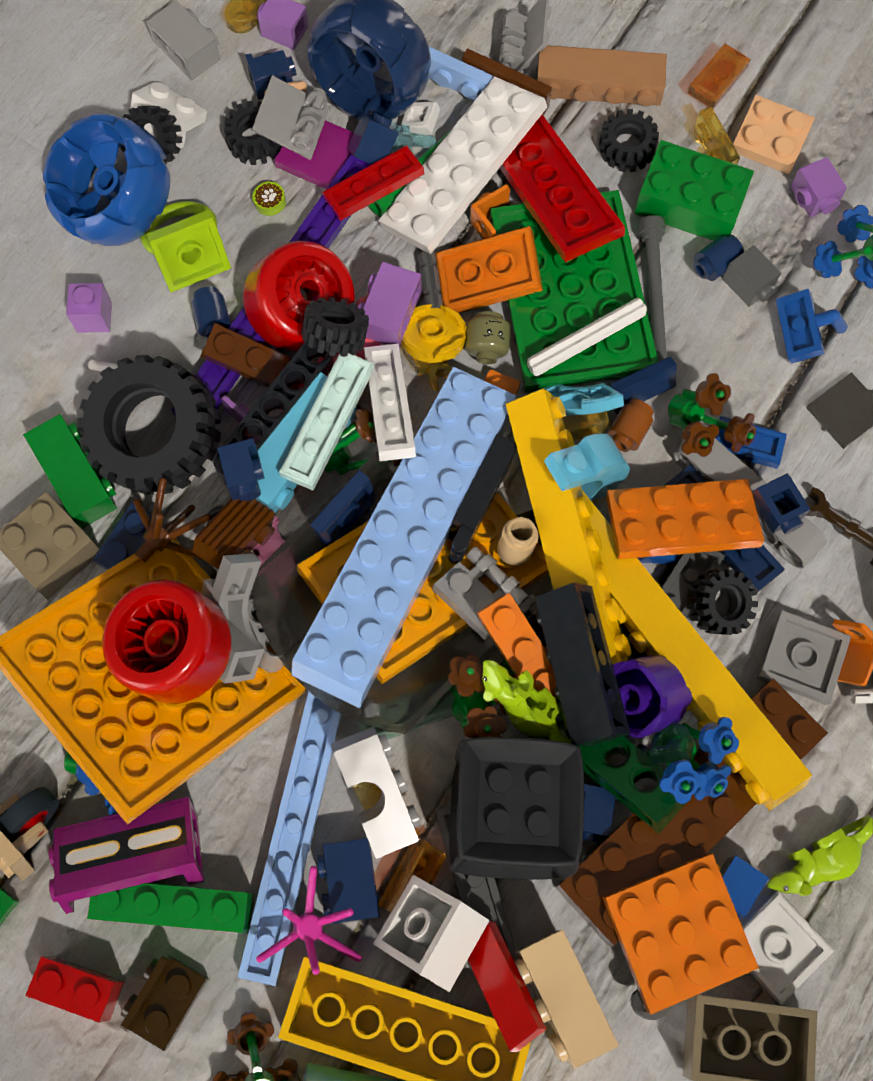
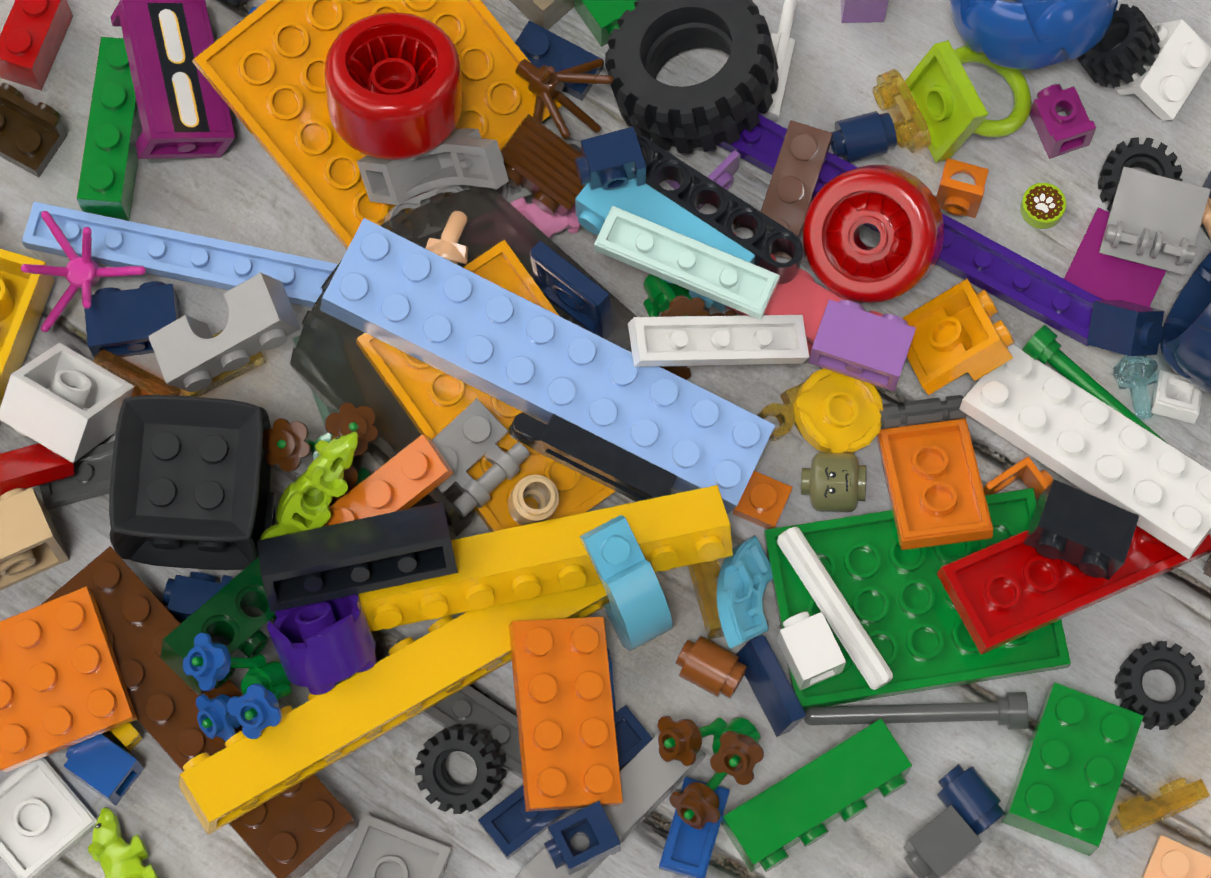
camera: 90 degrees right, 0 degrees up
(179, 289) = (895, 97): none -> clear yellow plate
(204, 180) = (1058, 132): none -> magenta brick
(263, 245) = (957, 196): none -> orange bracket
(307, 606) = (448, 244): none -> light nougat plate
(335, 326) = (830, 263): black tyre -> none
(373, 183) = (1058, 329): red tile -> none
(373, 242) = (957, 337): none -> light orange plate
(533, 165) = (1081, 530): none -> black brick
(622, 350) = (810, 649): none -> white brick
(672, 744) = (257, 662): clear green tile -> none
(719, 349) = (816, 796): none -> green brick

